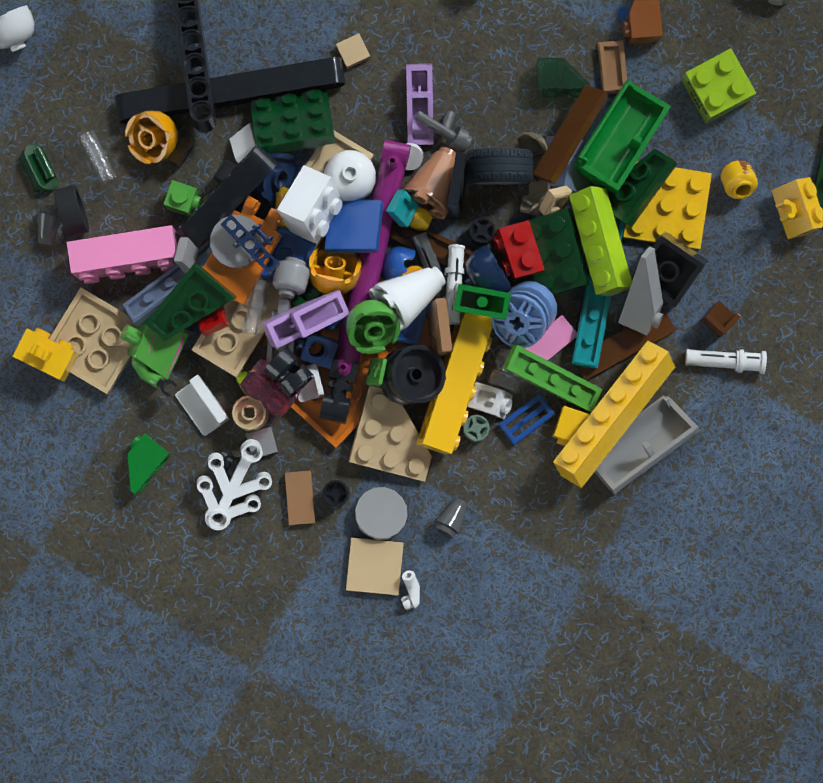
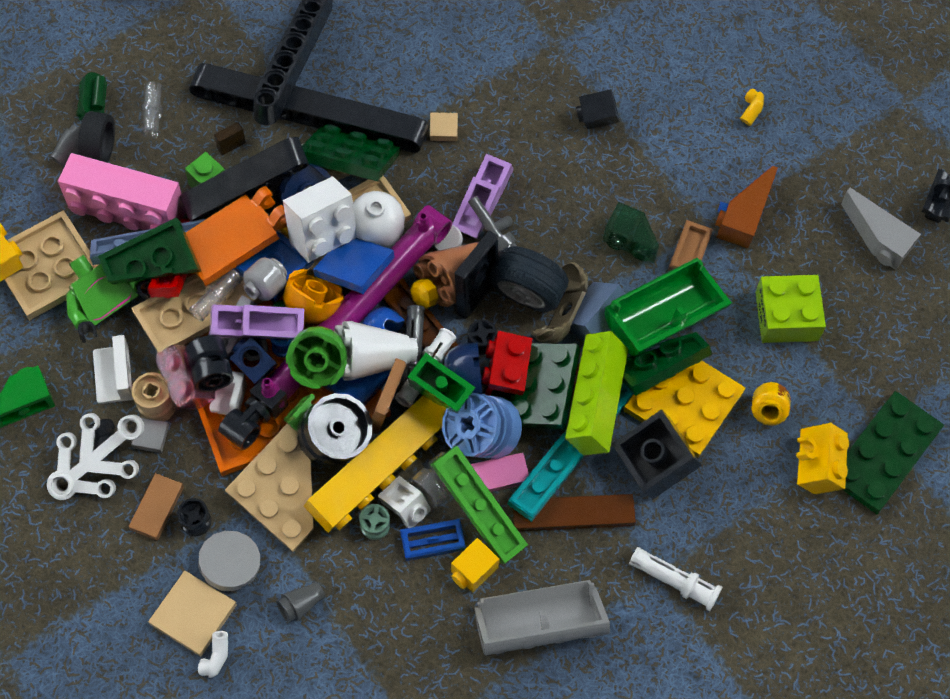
camera: 25 degrees right, 20 degrees down
(151, 136) = (210, 108): light orange cylinder -> none
(185, 254) = (178, 209): light grey tile -> none
(222, 243) = (230, 220): light grey tile -> none
(249, 235) = (241, 214): dark blue piece -> none
(402, 208) = (411, 270): teal plate -> none
(555, 200) = (569, 332): tan tile -> none
(570, 134) = (615, 280): reddish brown tile -> none
(614, 414) = (525, 570): yellow brick -> none
(644, 298) = (616, 462): light grey slope -> none
(720, 319) = (688, 533): reddish brown panel -> none

